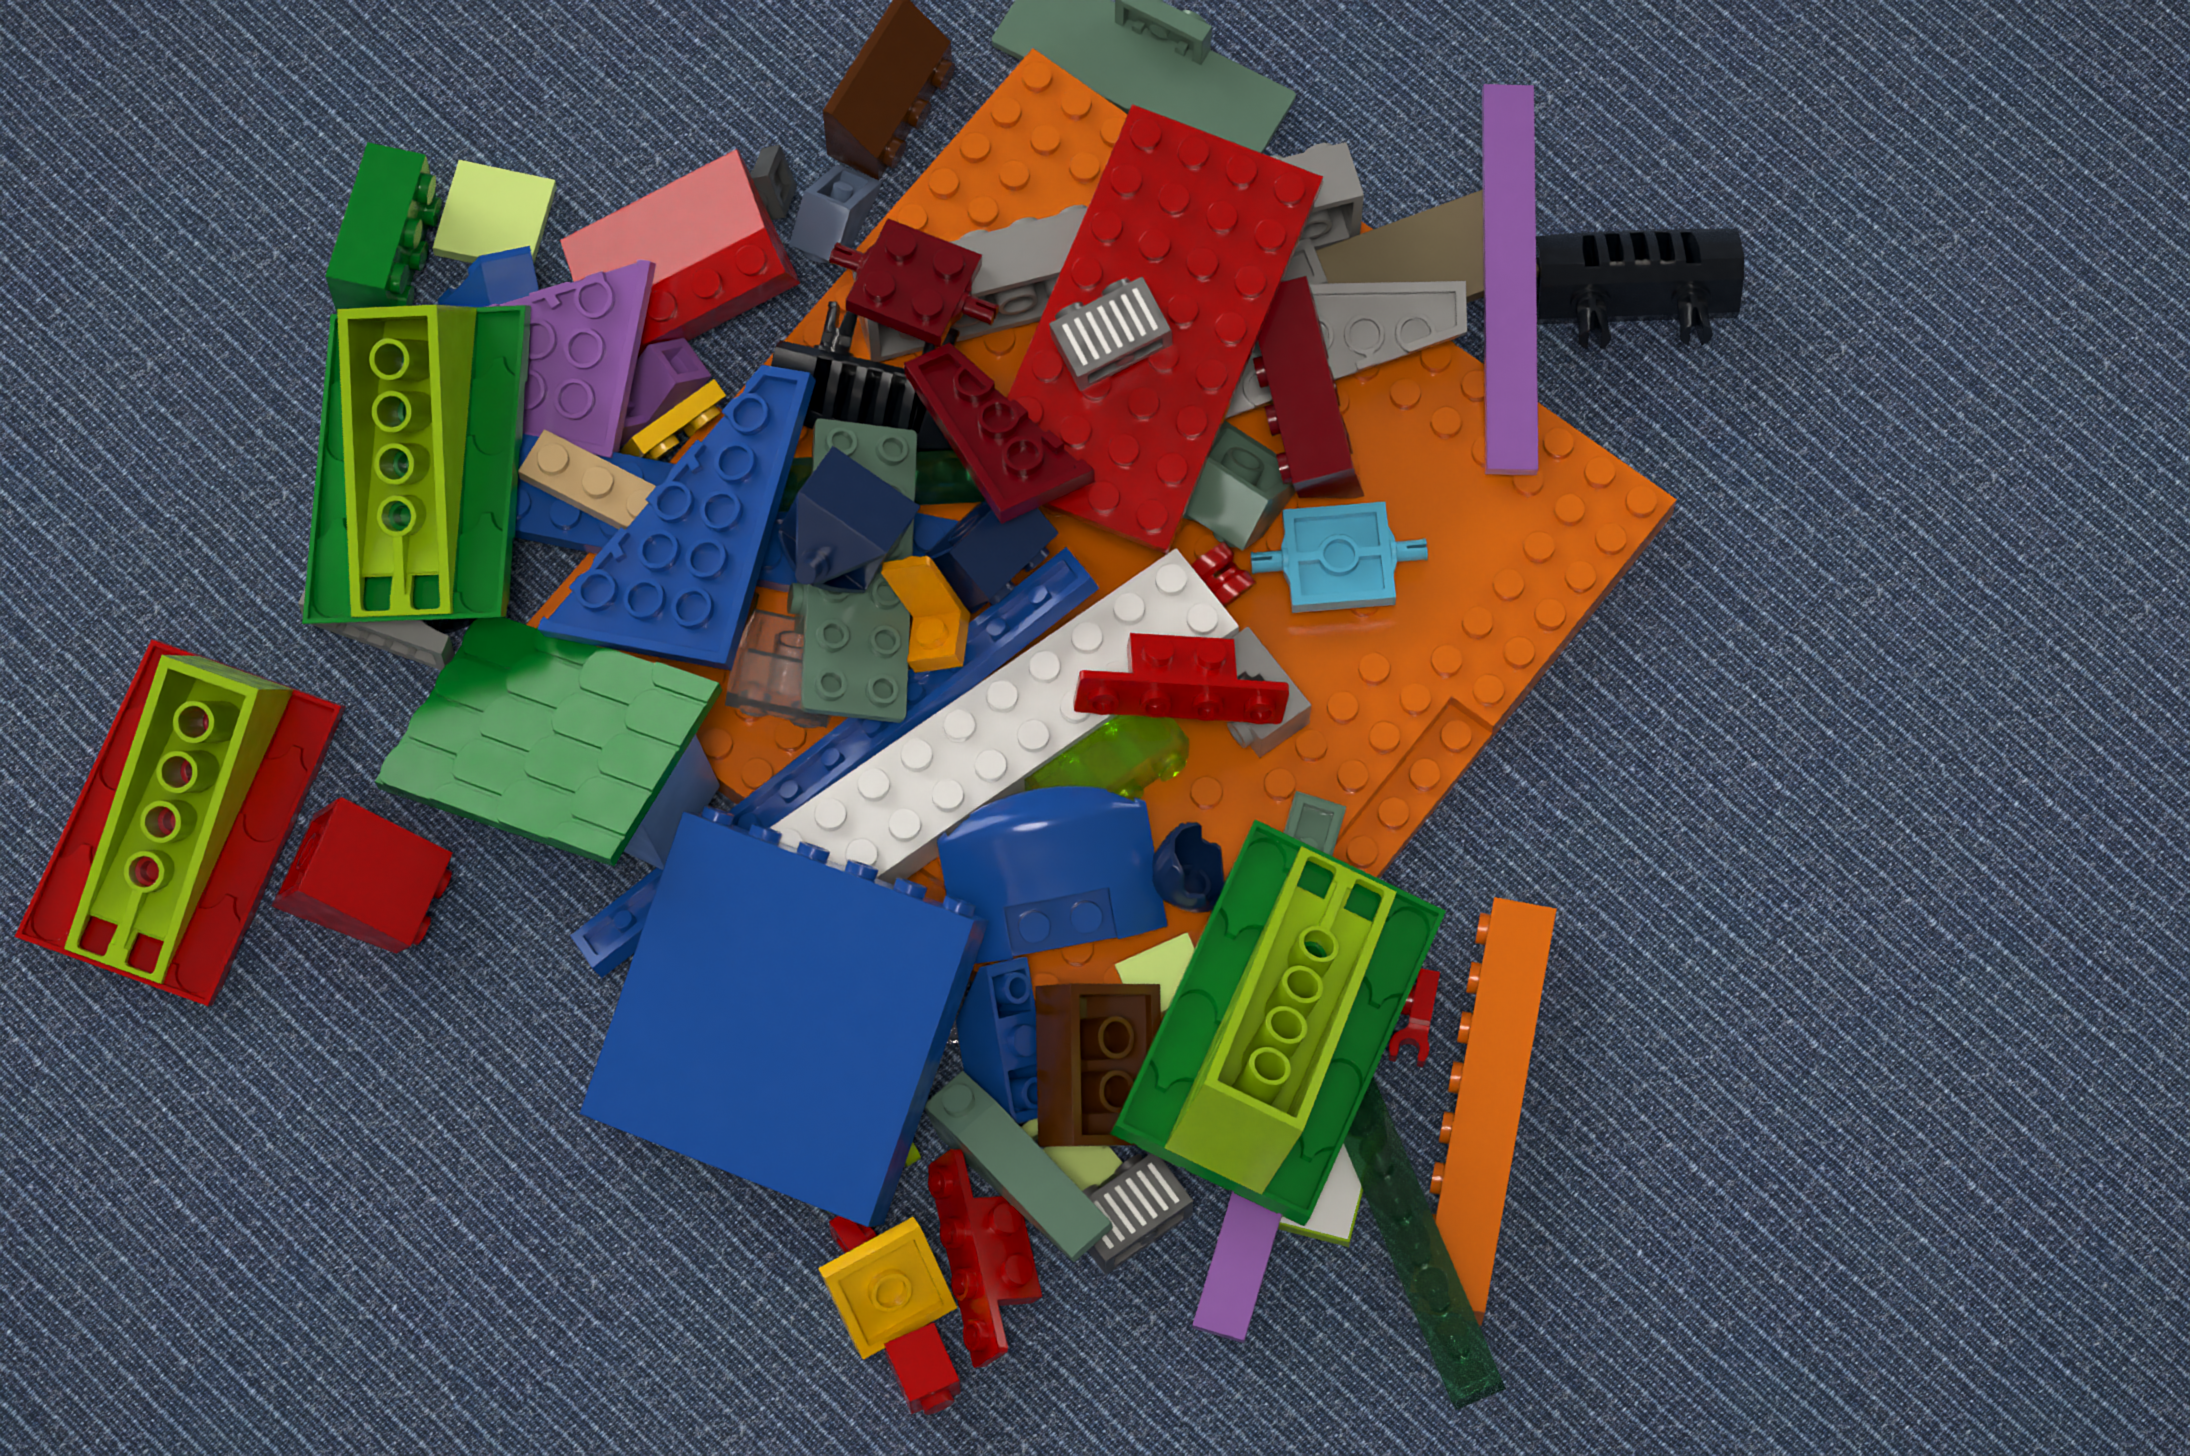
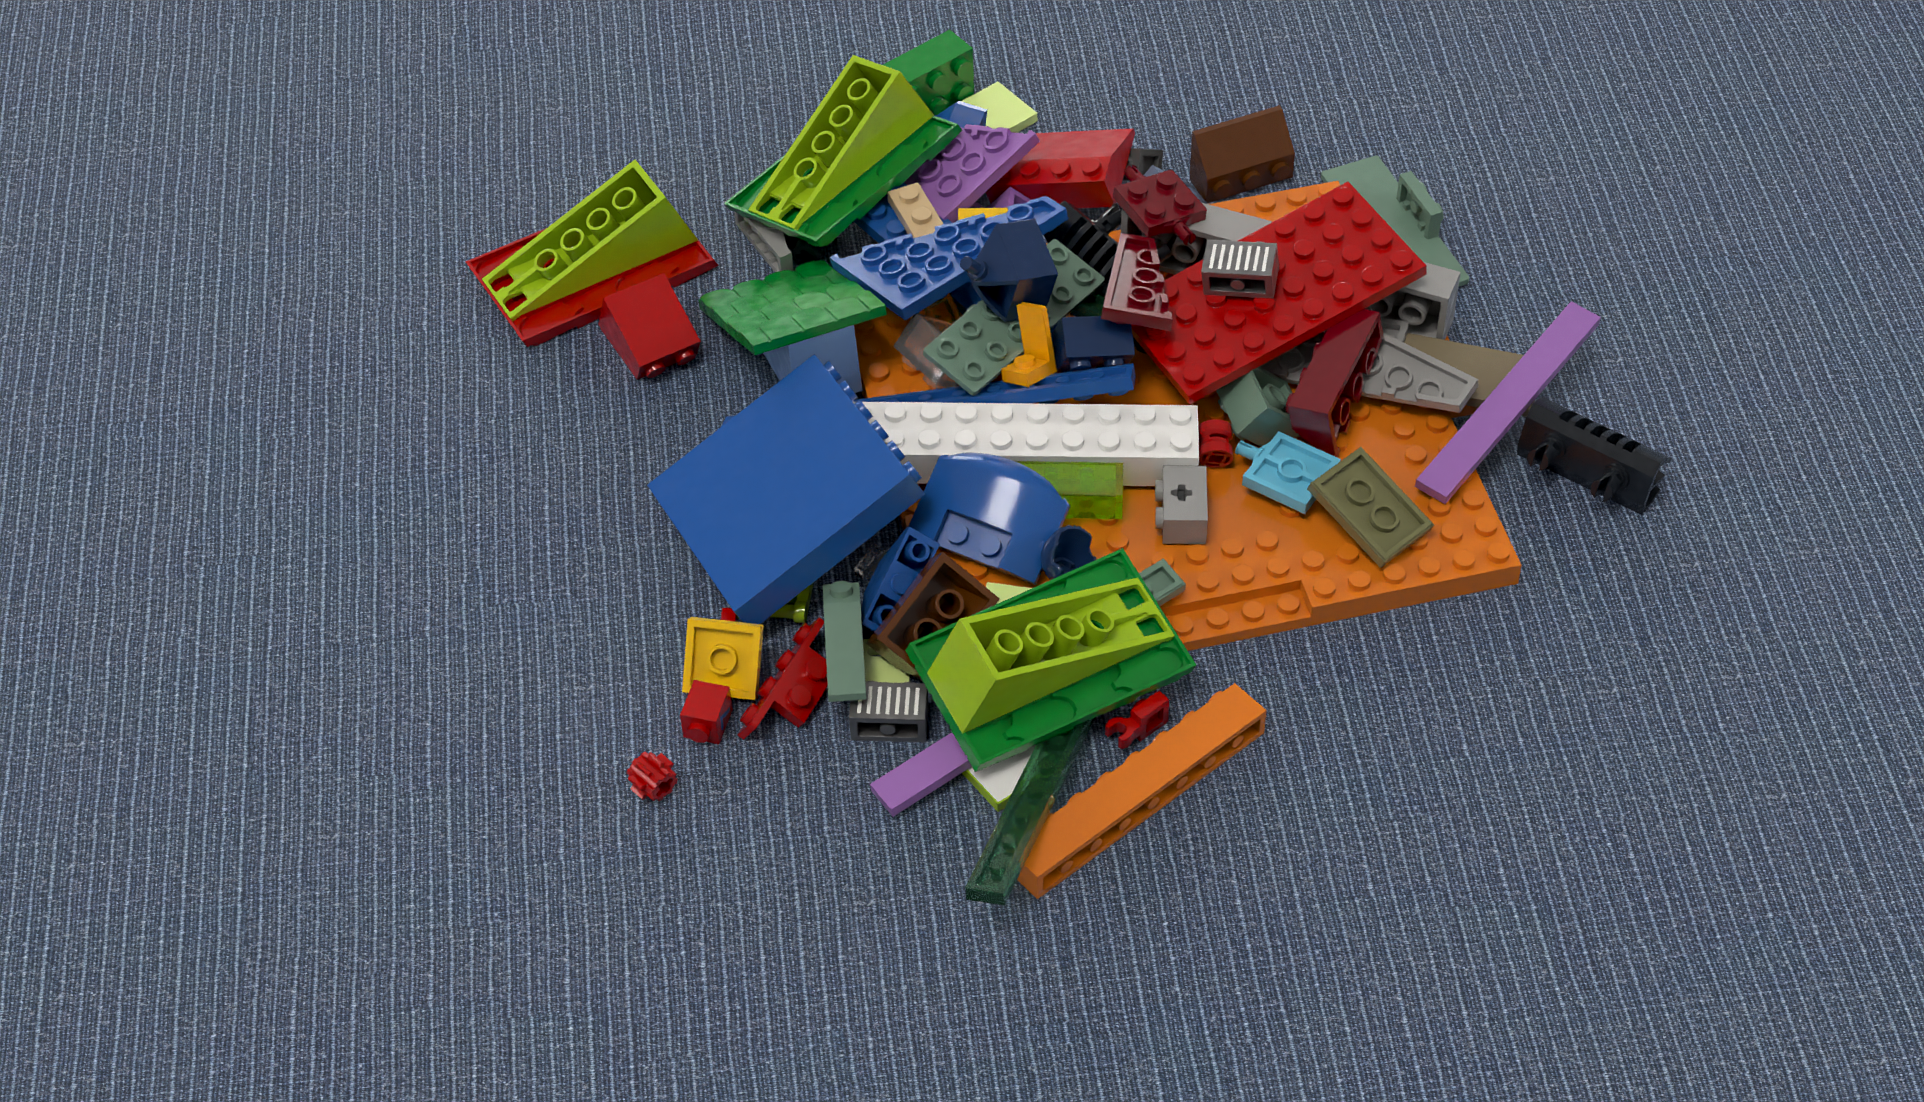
camera: 40 degrees right, 20 degrees down
(1181, 680) = (1138, 457): red bracket -> none
(1470, 548) = (1370, 507): none -> olive tile

